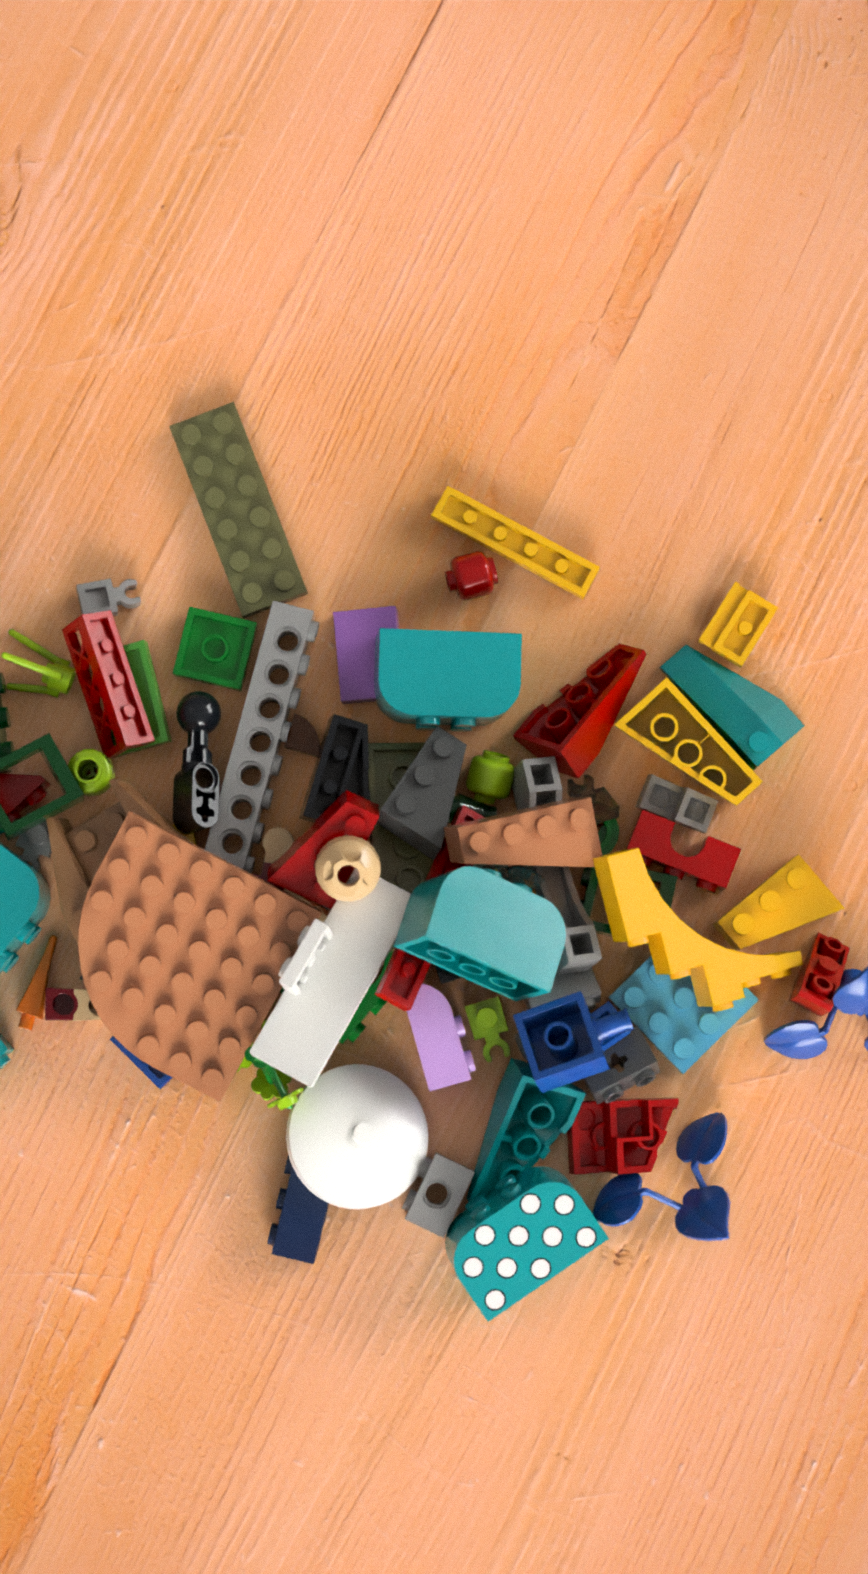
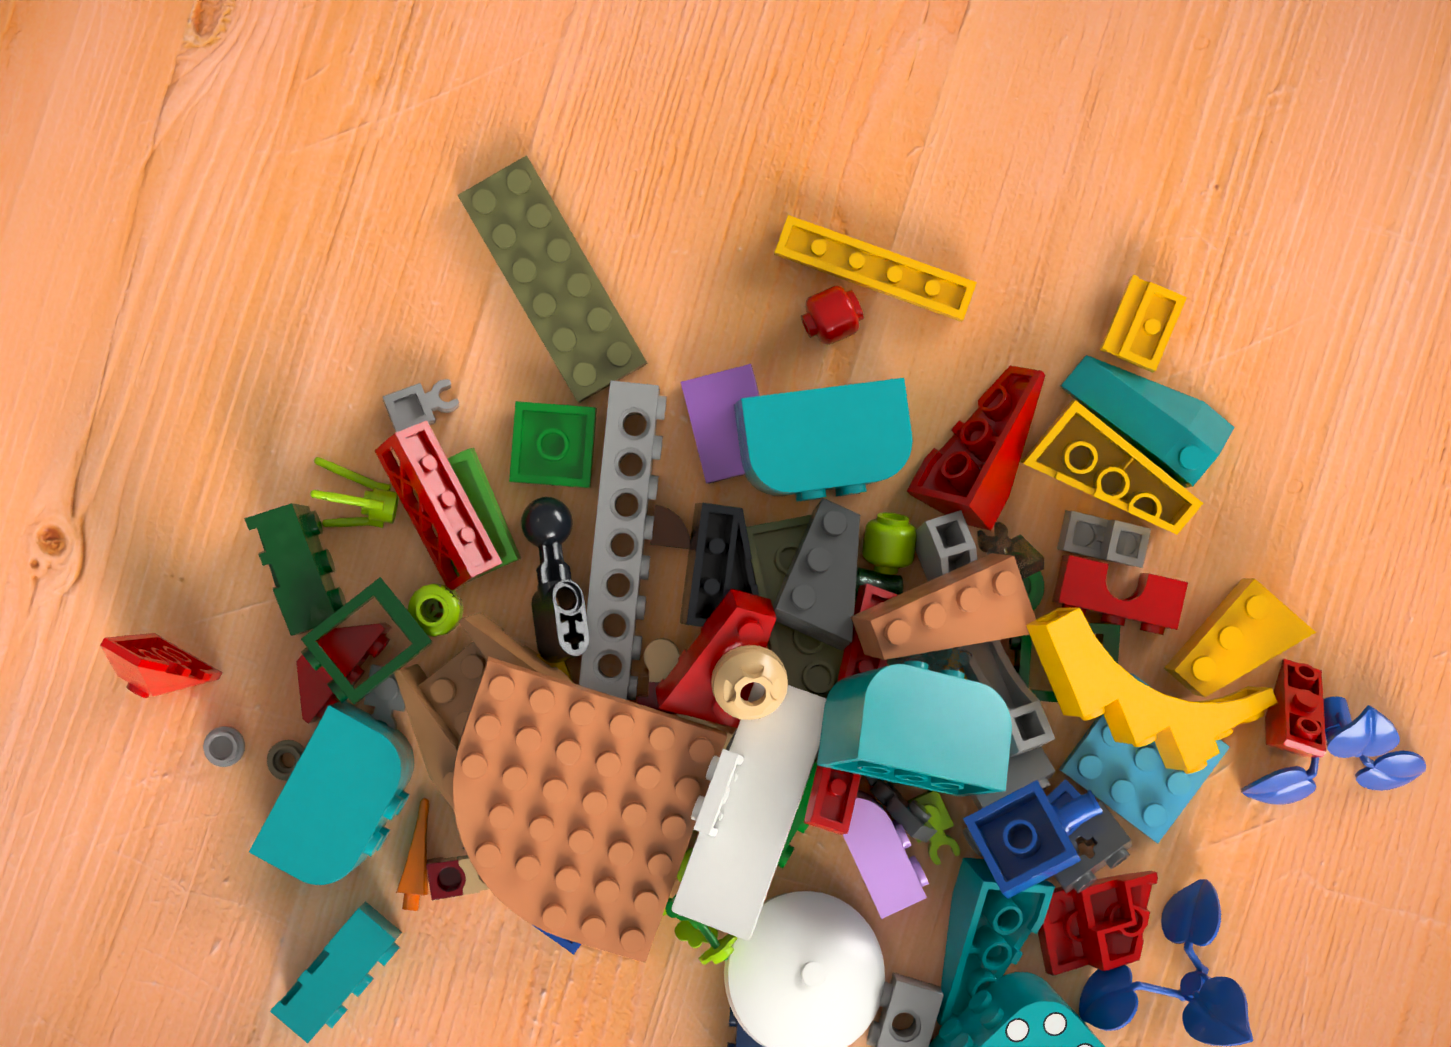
camera: 10 degrees left, 5 degrees up
(470, 1011) = (911, 815): none -> dark grey plate

